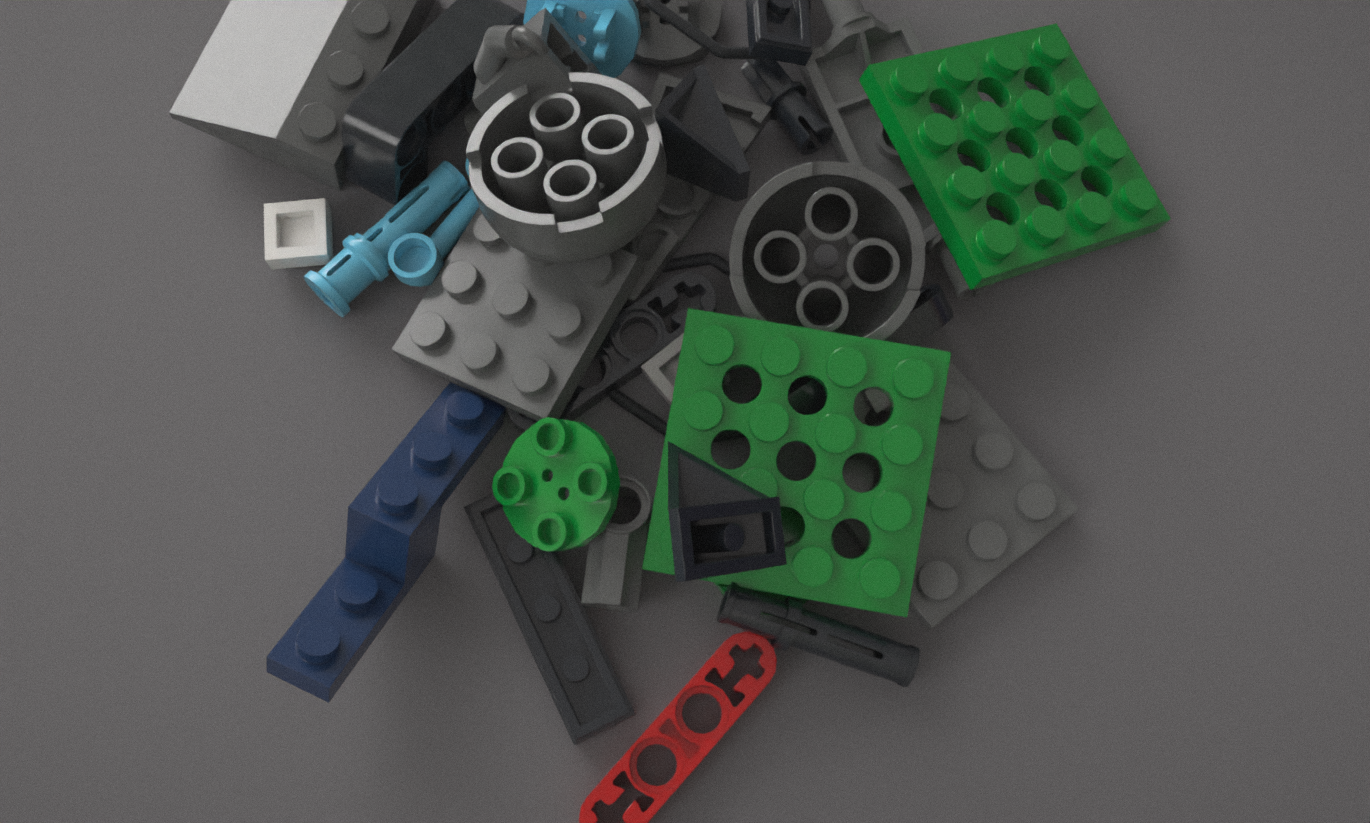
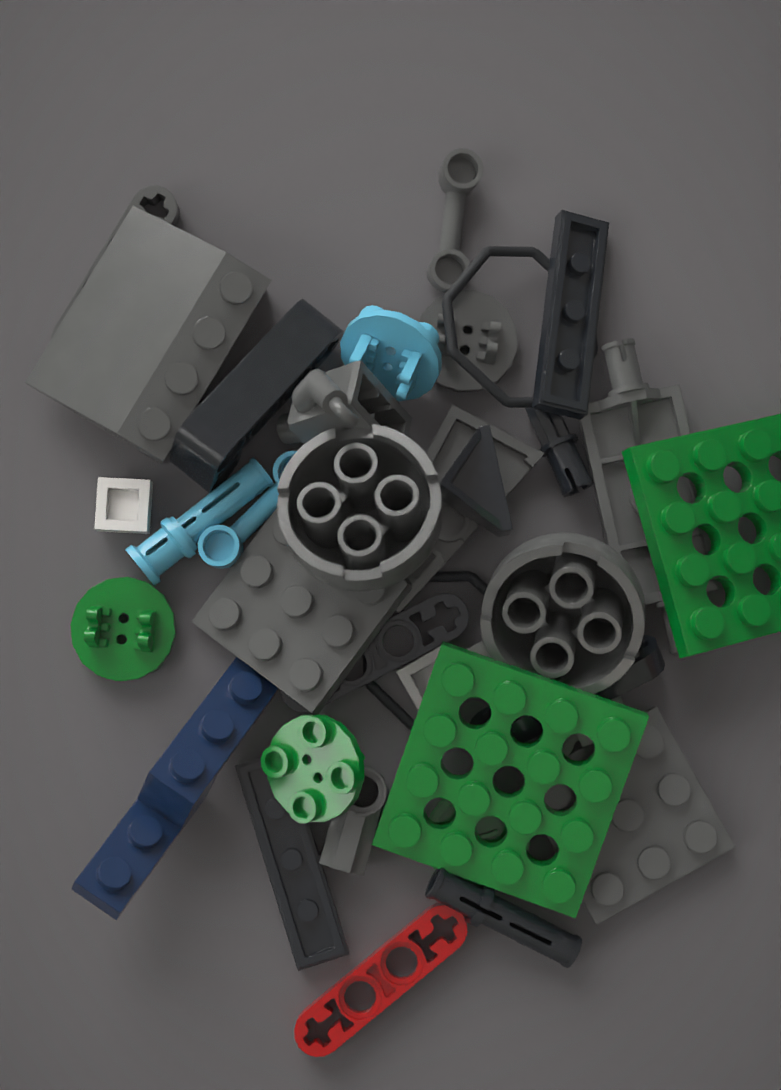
camera: 10 degrees right, 10 degrees up
(342, 369) = (98, 627): none -> green plate
(719, 521) = (437, 827): black slope -> none

